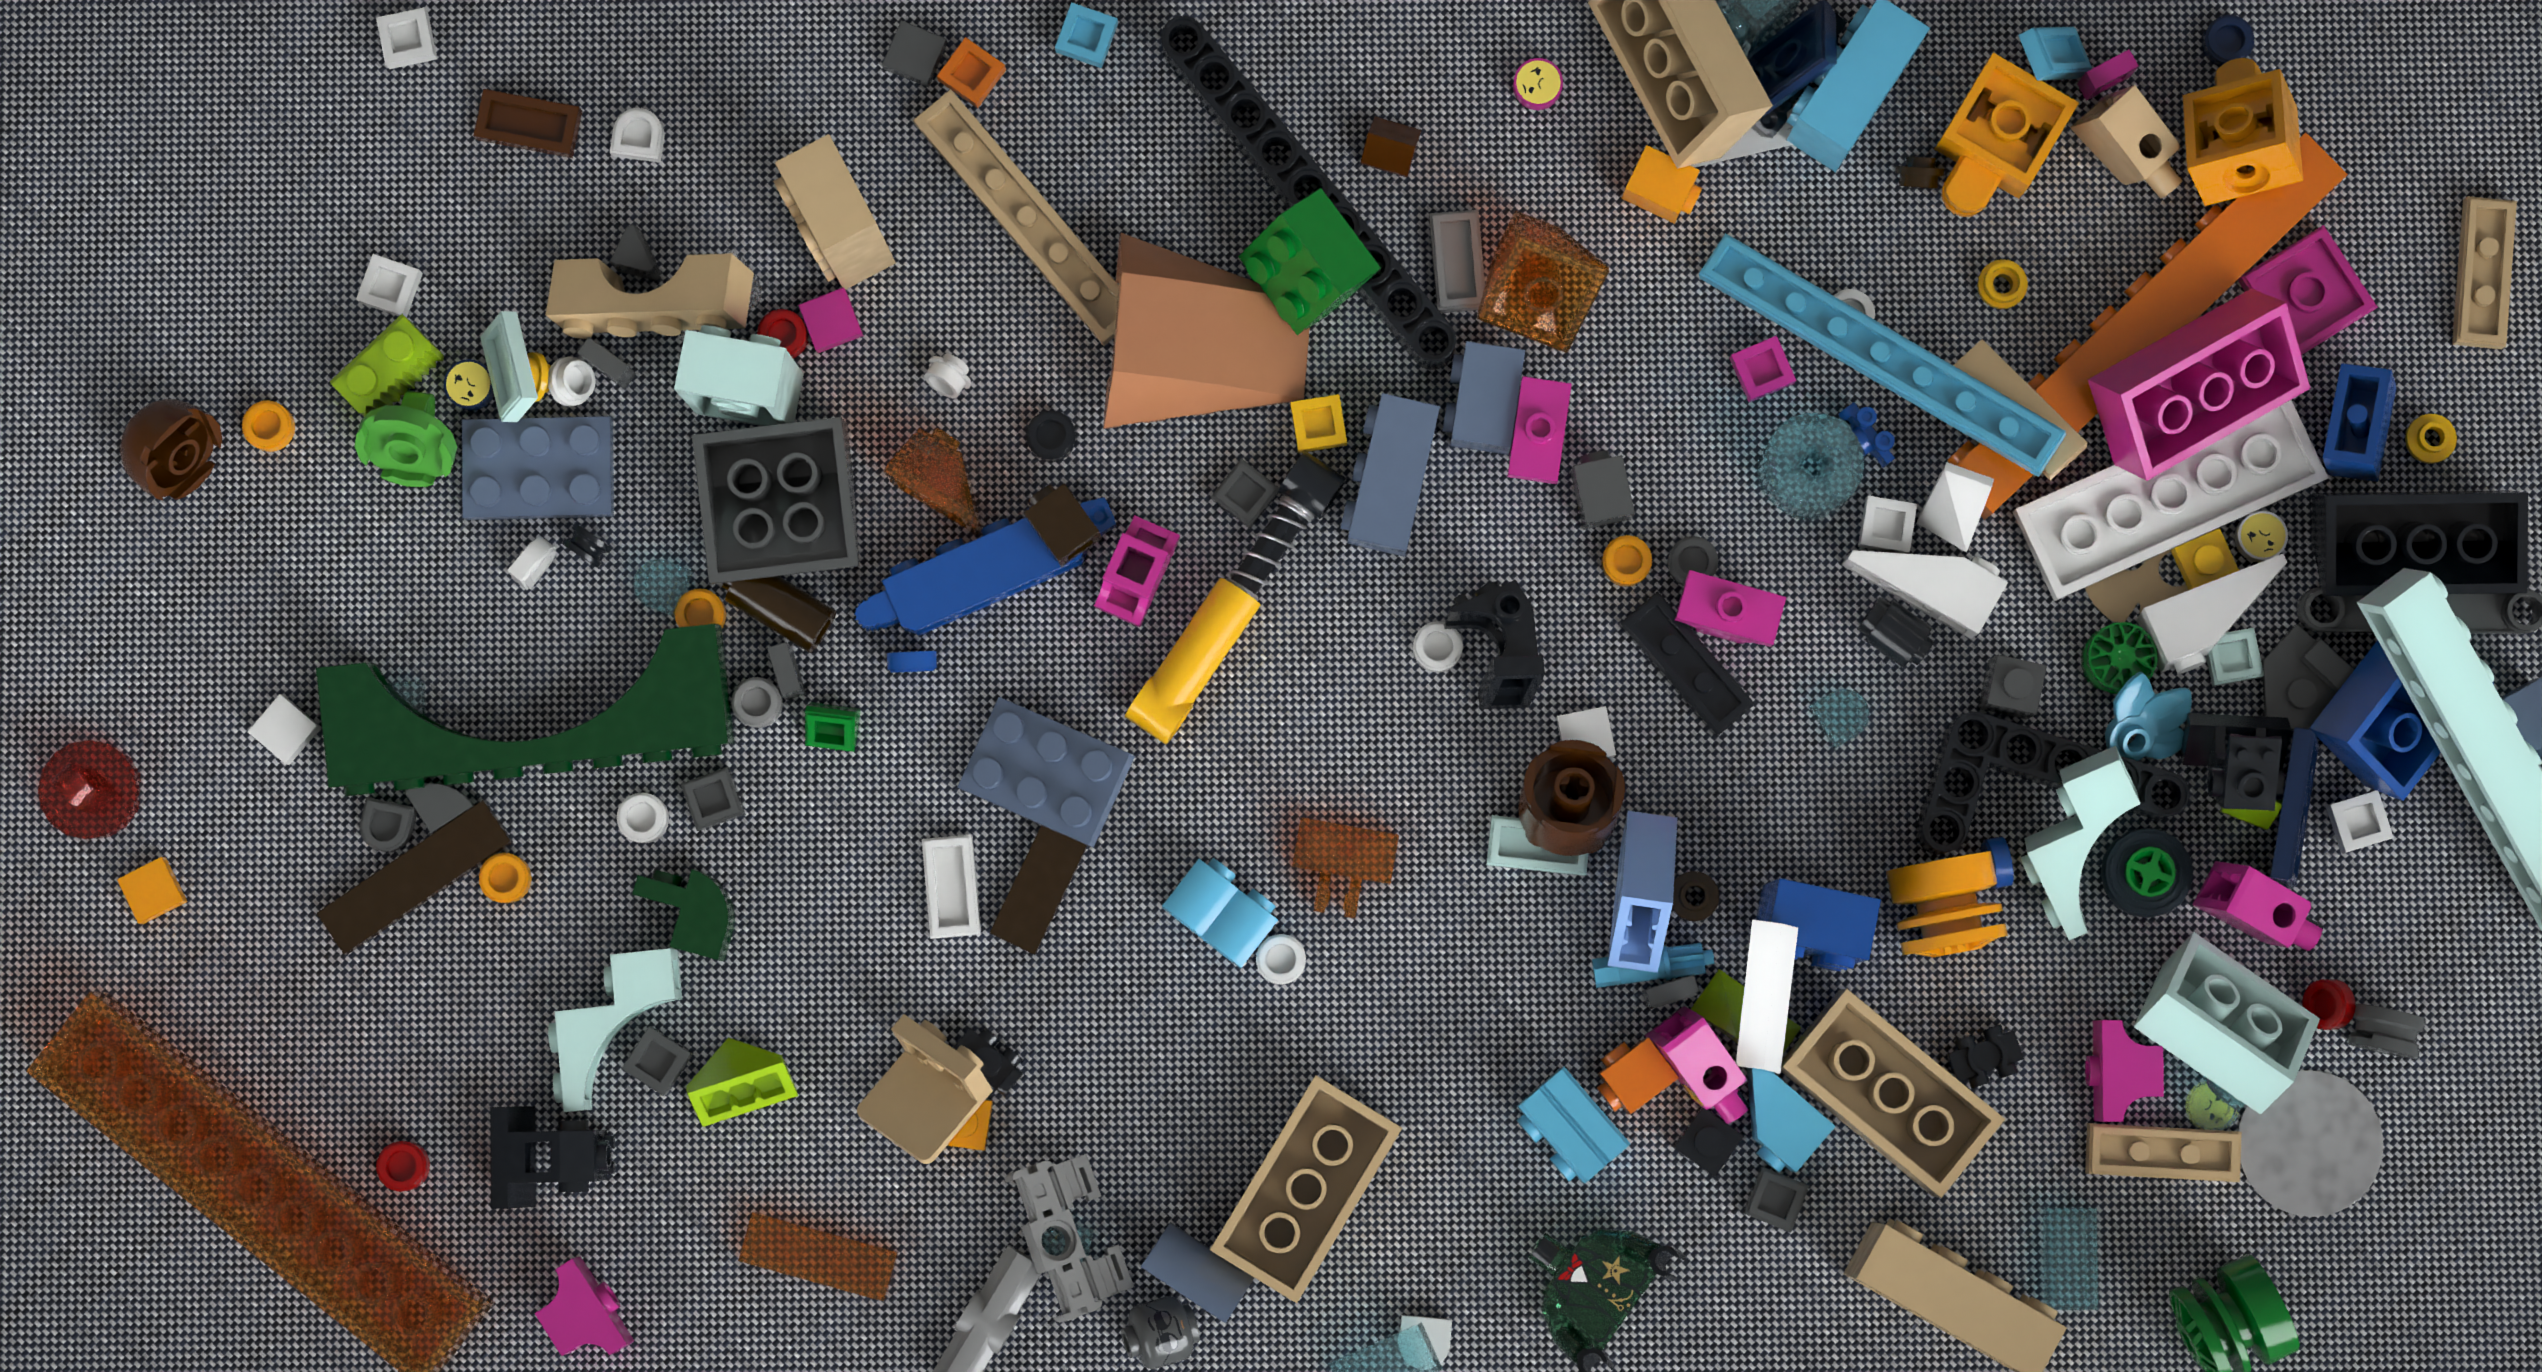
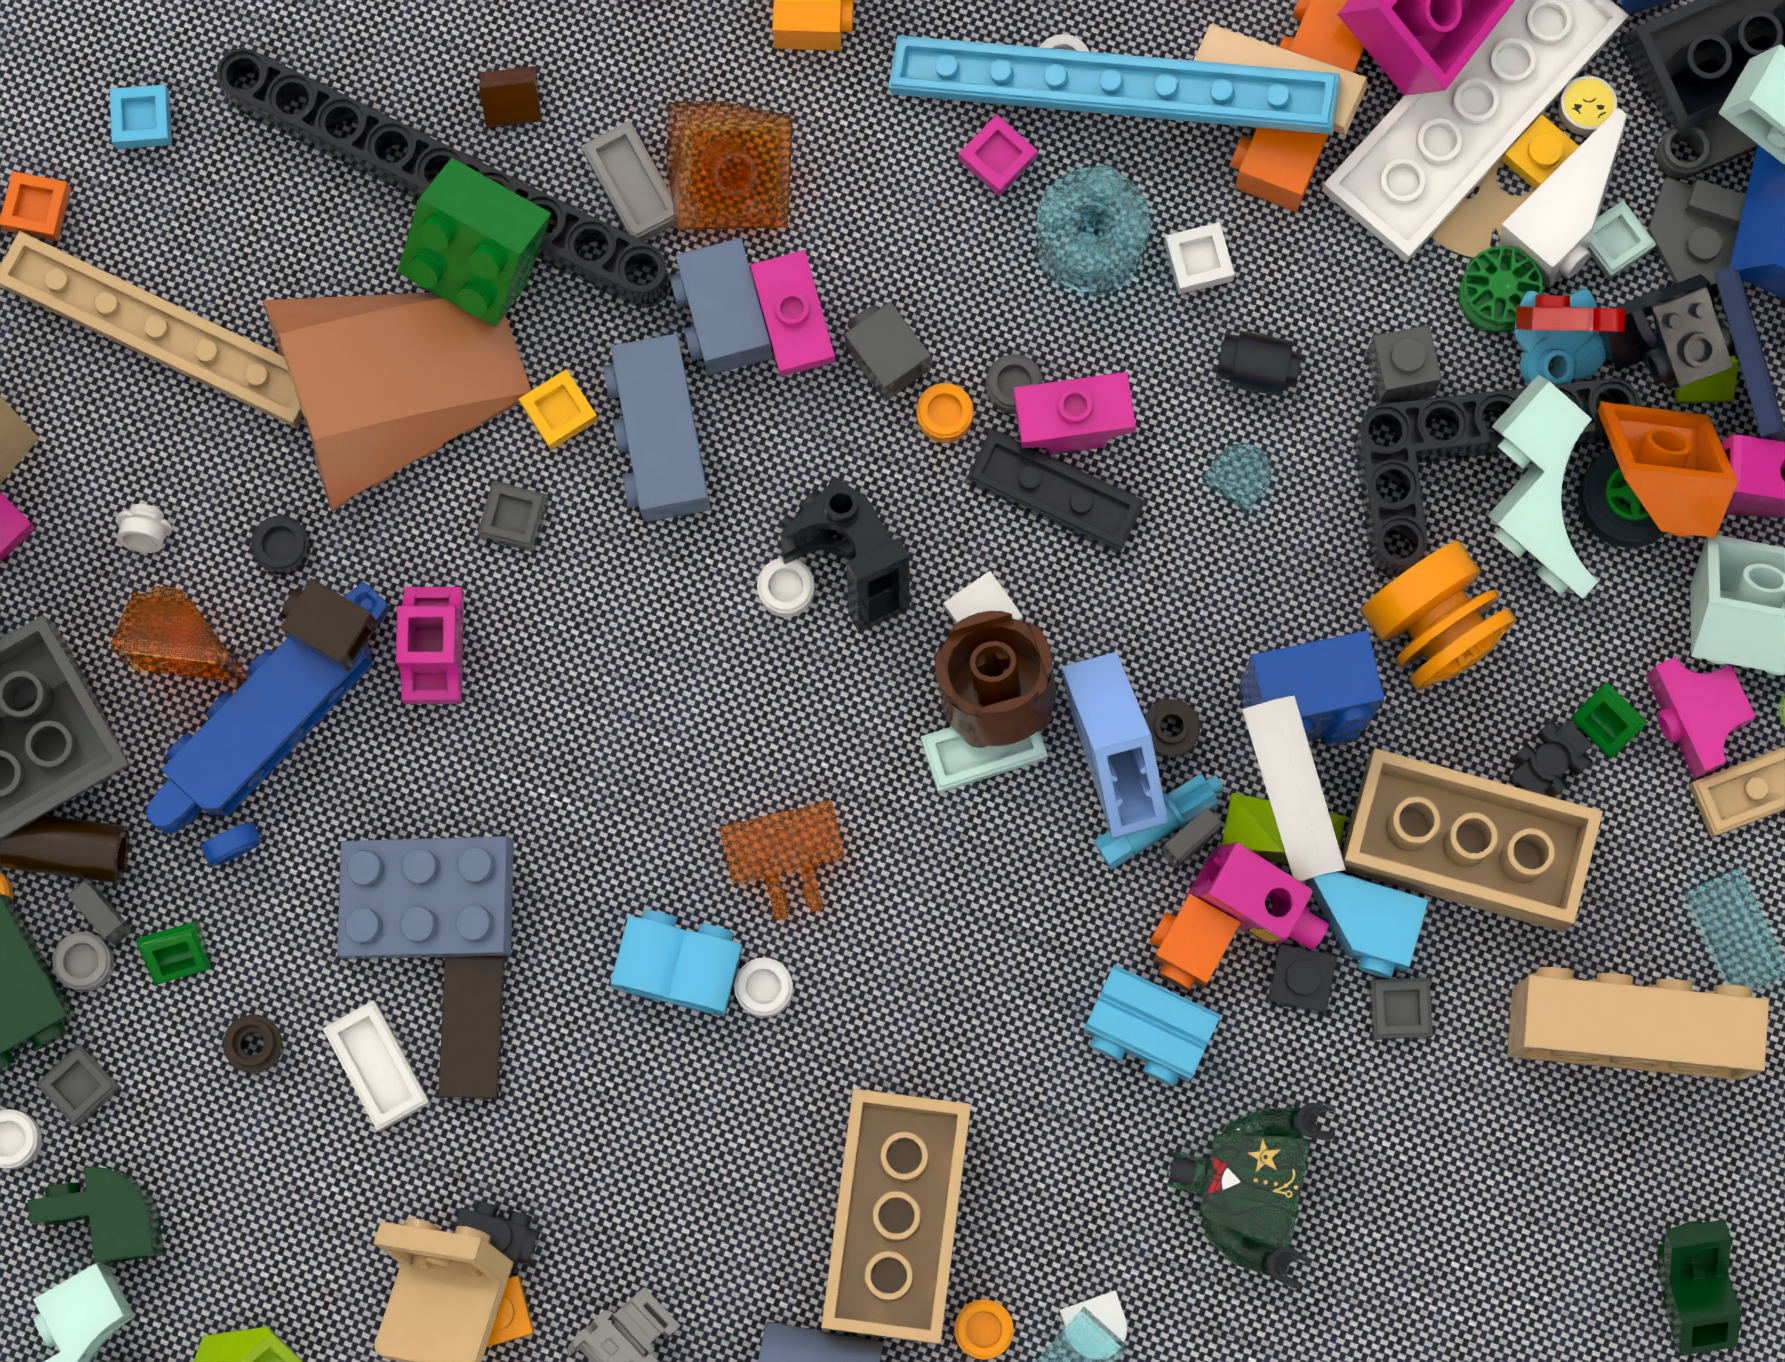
camera: 25 degrees left, 5 degrees down
(848, 819) = (237, 1034): none -> dark brown plate
(1231, 603) = (523, 760): piece -> none
(1335, 1303) = (983, 1329): none -> light orange tile
(1871, 442) = (1149, 179): blue piece -> none
(1944, 587) = (1283, 296): white slope -> none
(1956, 505) = (1259, 201): white slope -> none
(2001, 860) = (1476, 548): blue tile -> none
(2046, 1044) = (1608, 720): none -> green slope
(2153, 704) = (1555, 313): none -> red plate
(2188, 866) = (1672, 466): none -> orange slope

